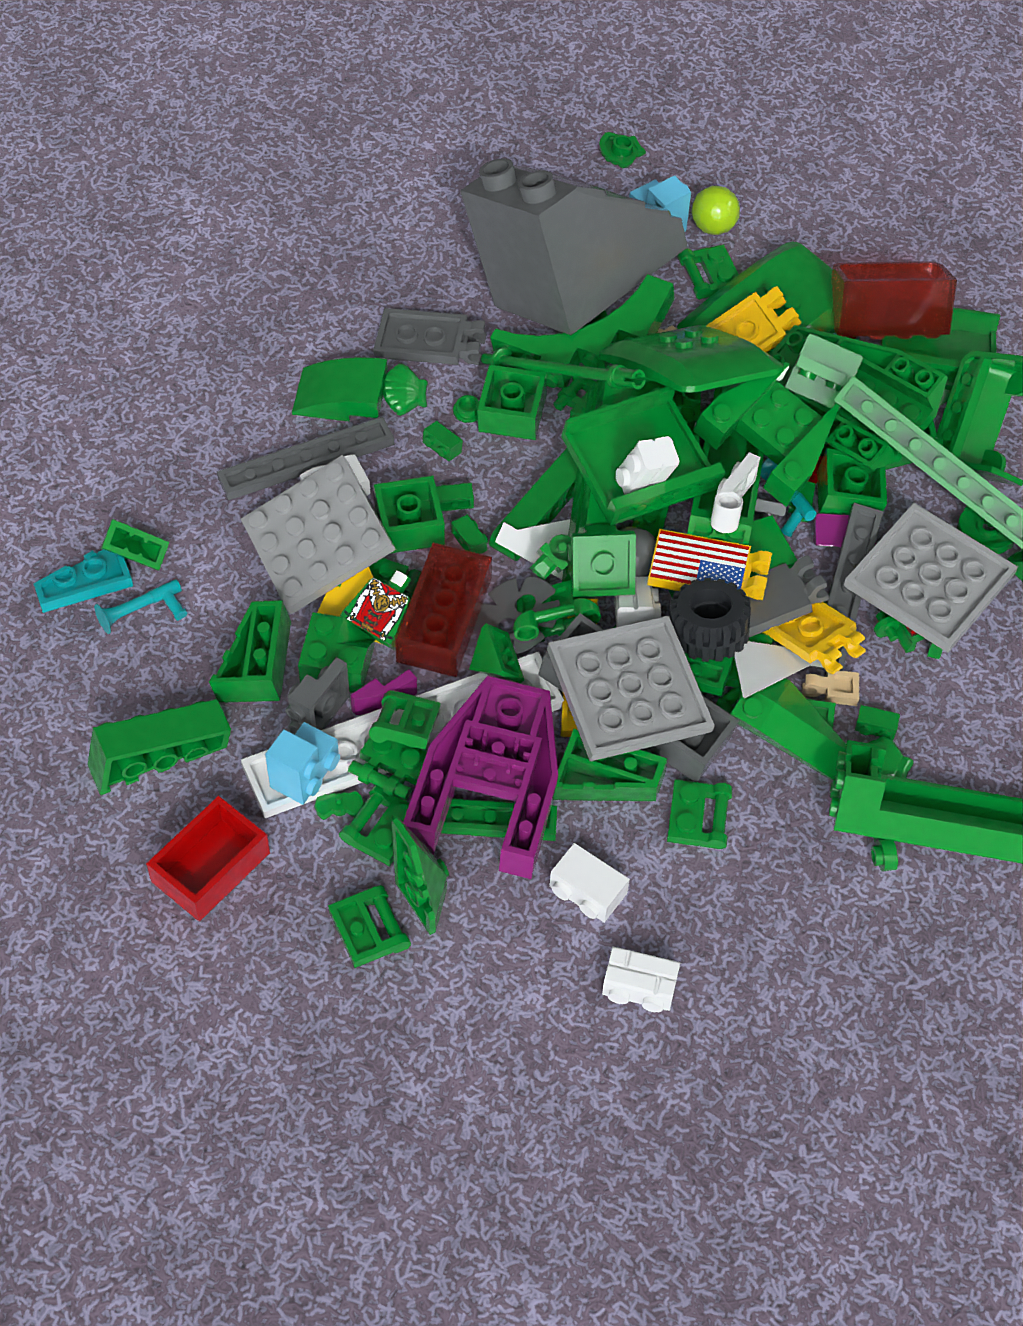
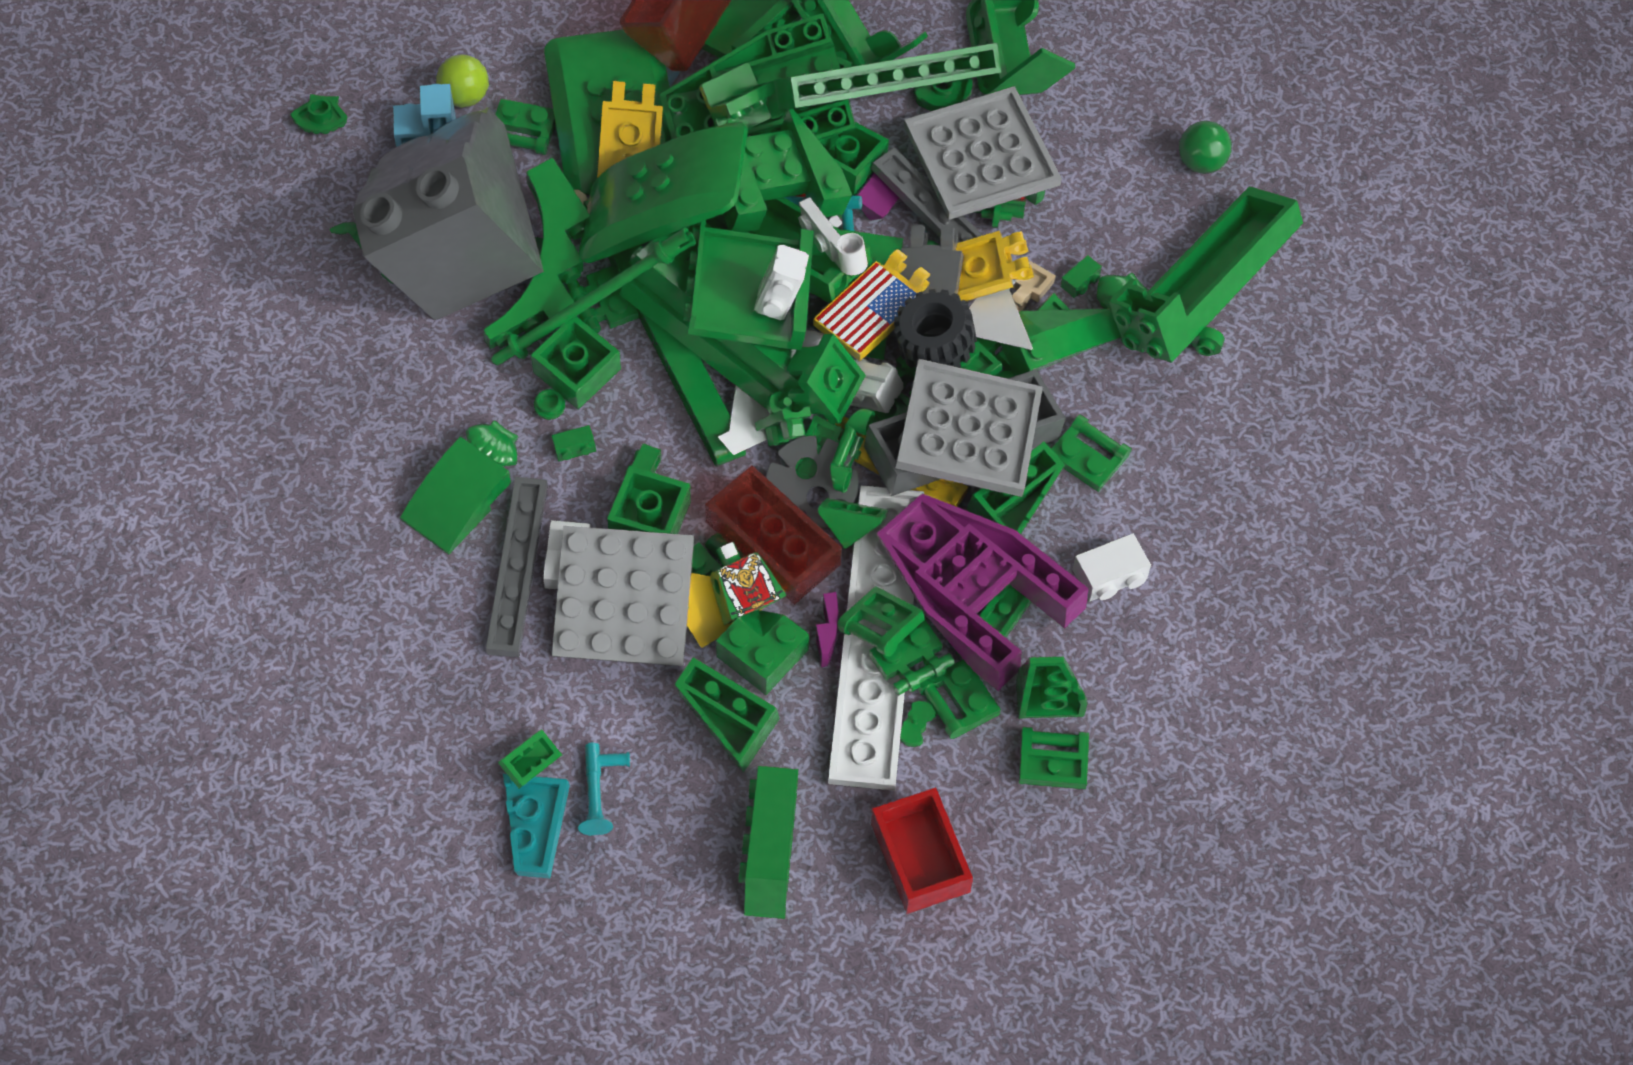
camera: 60 degrees left, 5 degrees up
(301, 761) = (876, 724): medium azure brick -> none
(318, 699) = (814, 687): dark grey plate -> none
(429, 337) = (439, 393): dark grey tile -> none
(469, 535) = (699, 476): green piece -> none
(640, 979) = (1221, 576): white brick -> none

